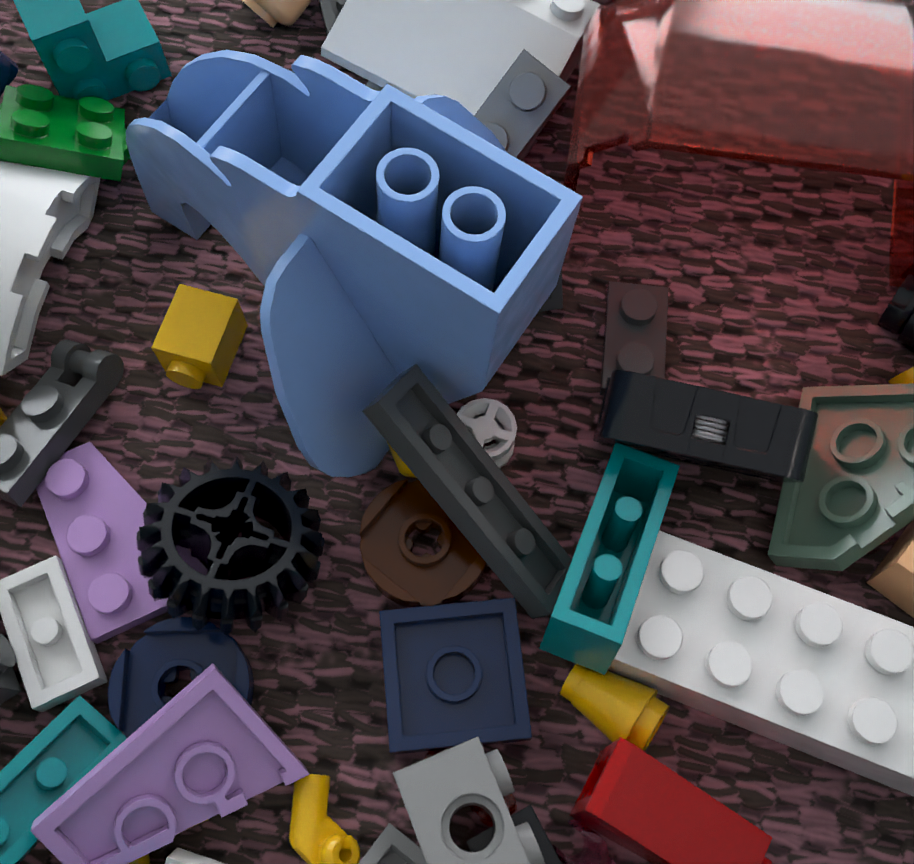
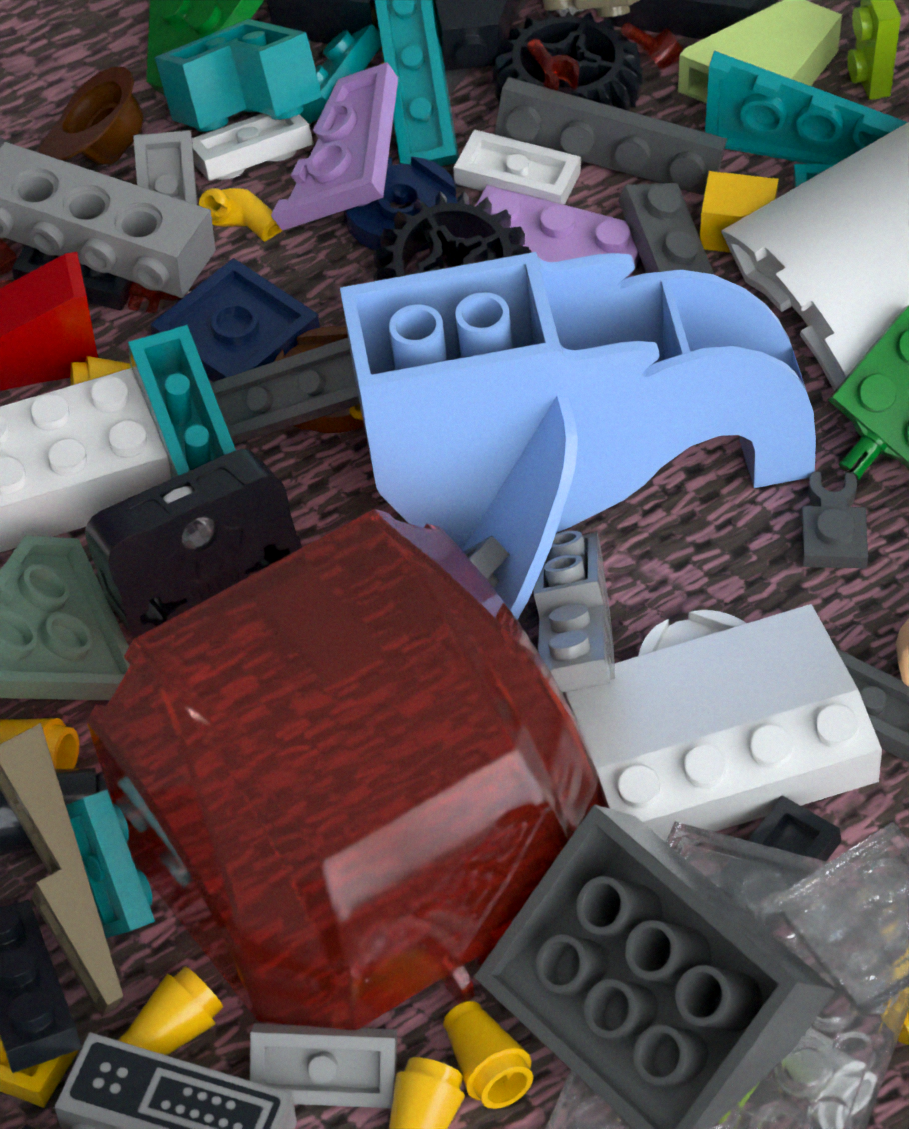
camera: 140 degrees right, 15 degrees down
(491, 421) = (351, 450): white wheel -> none

